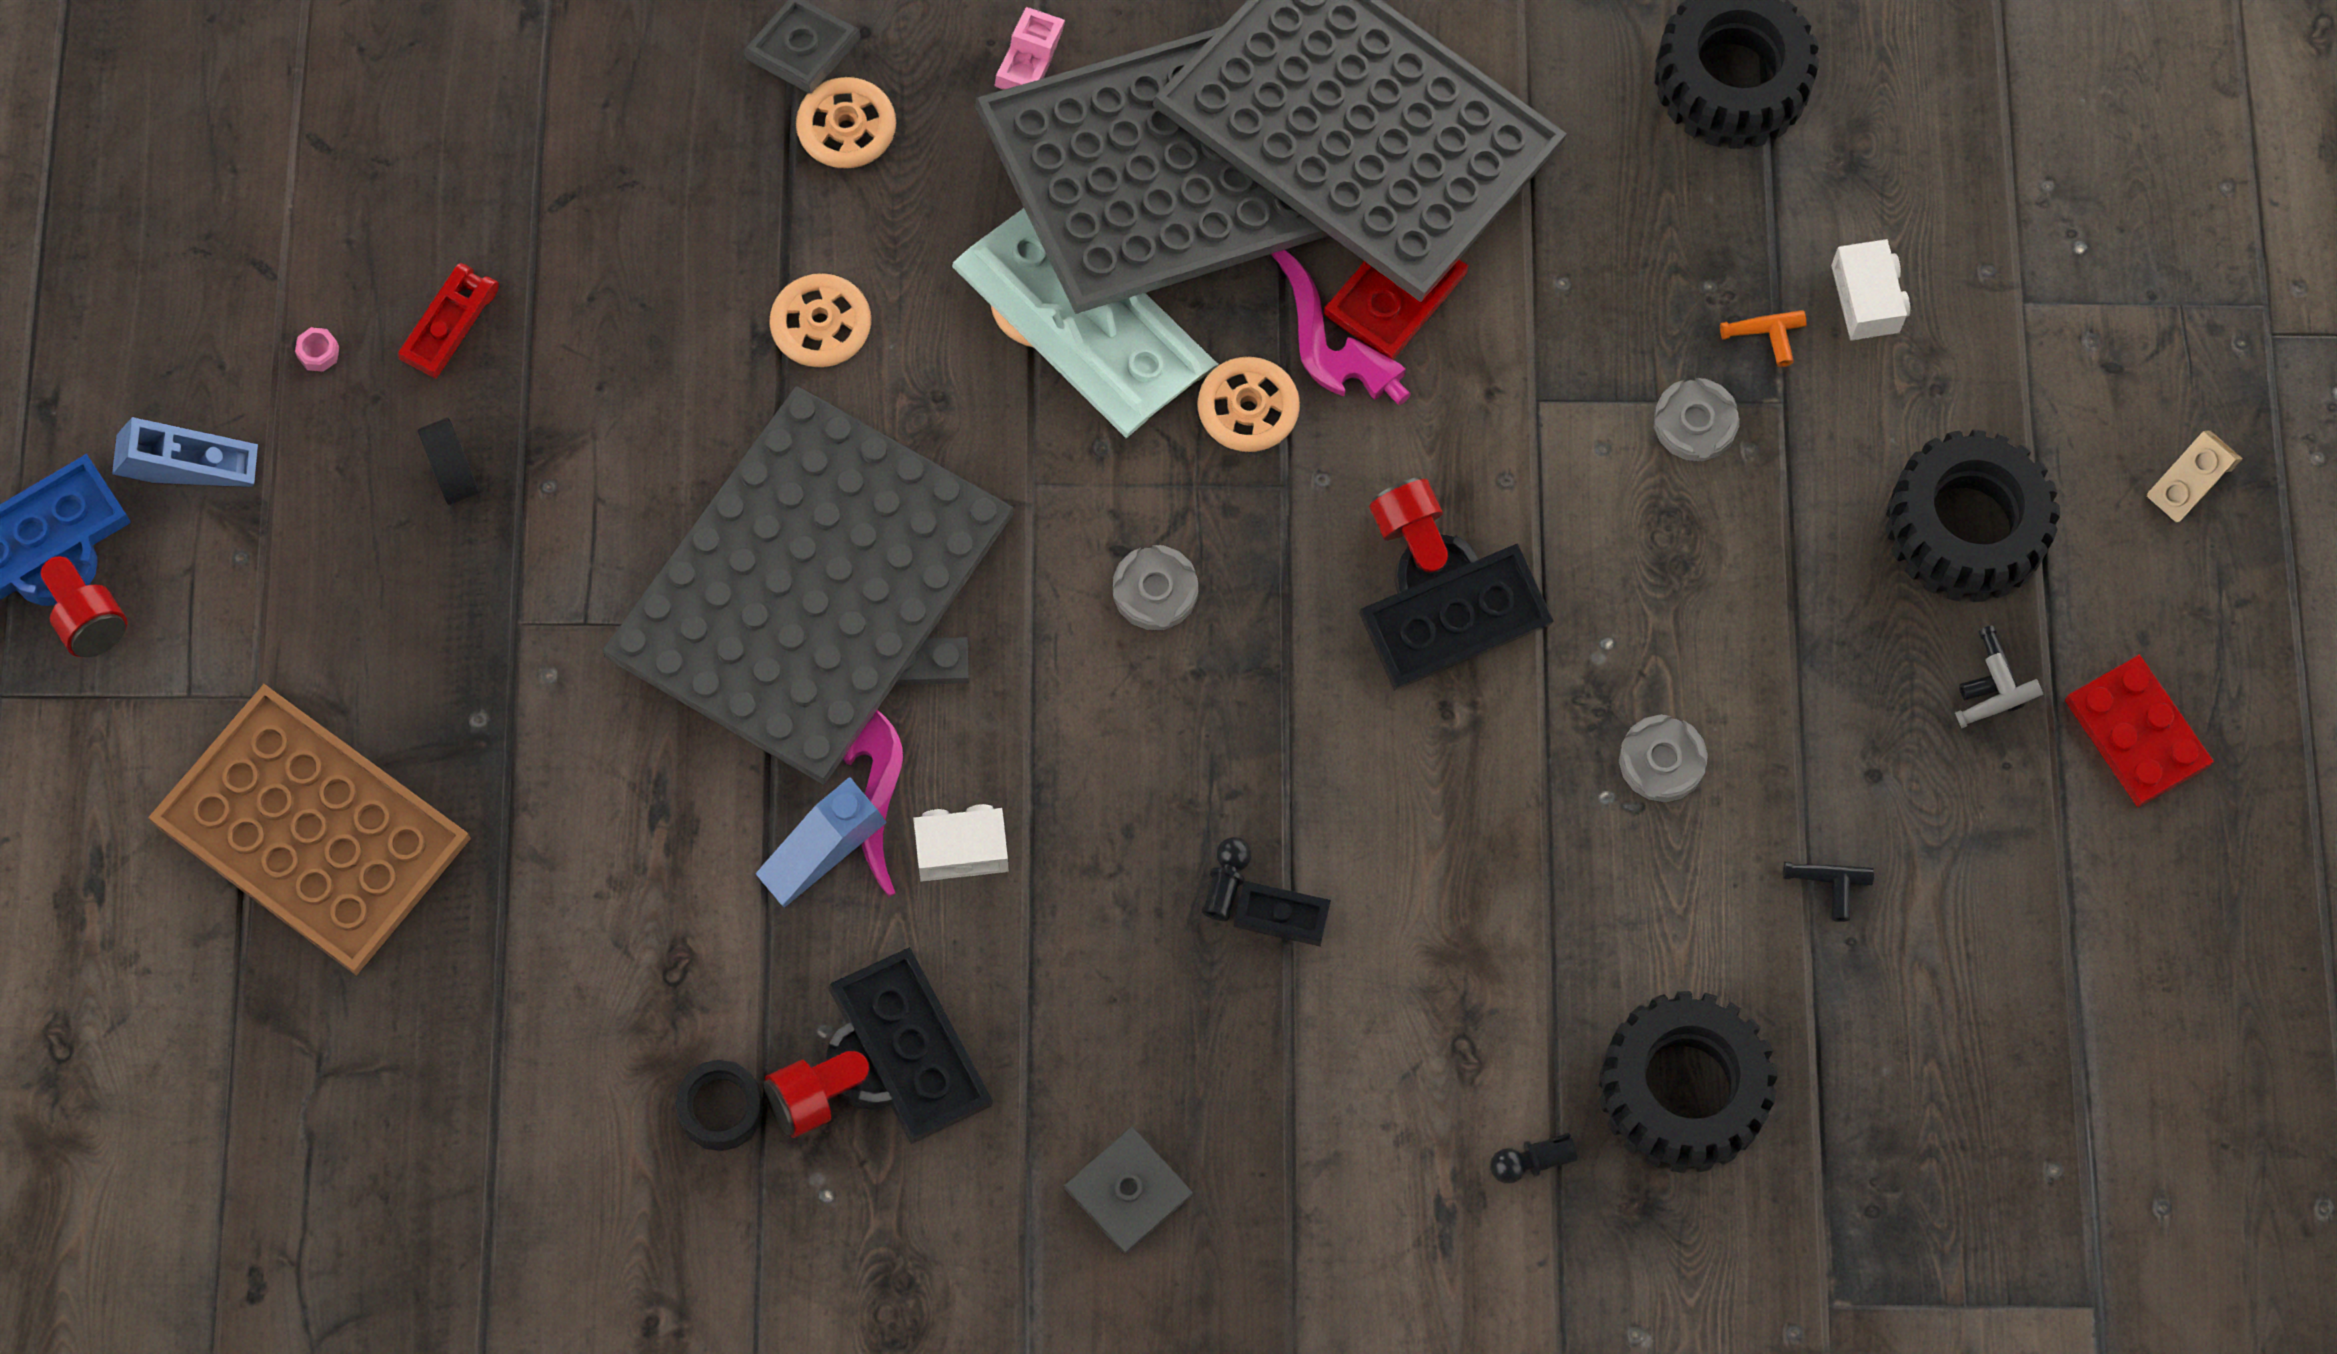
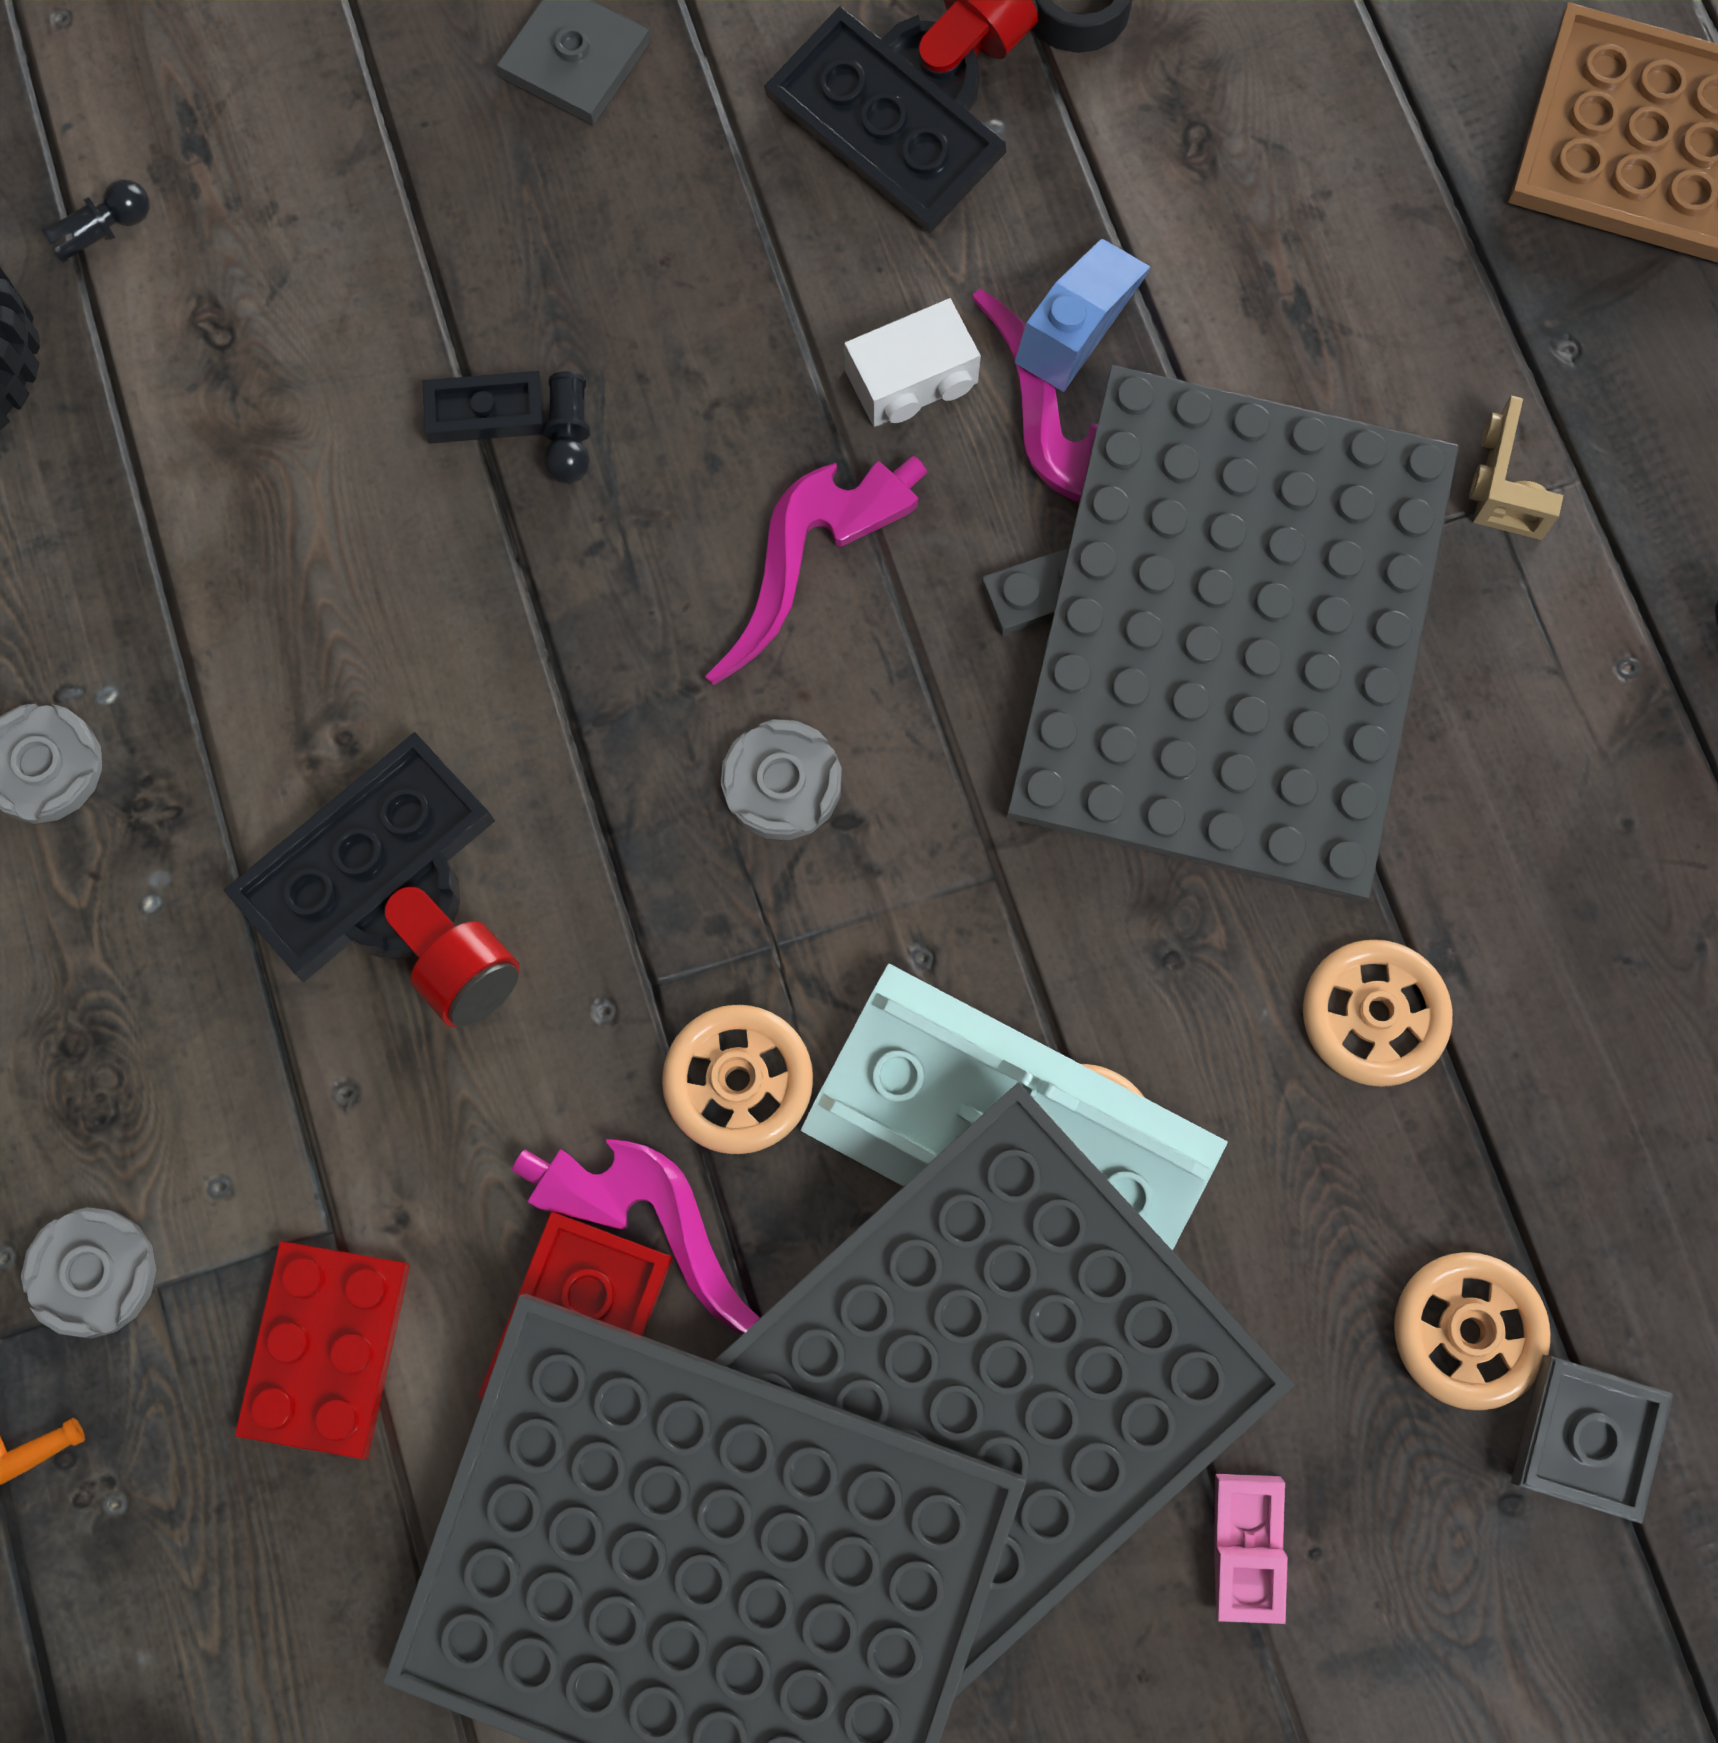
camera: 165 degrees right, 5 degrees up
(574, 604) = (1507, 505): none -> tan bracket
(1072, 771) = (809, 504): none -> dark pink piece
(1557, 330) = (323, 1350): none -> red plate

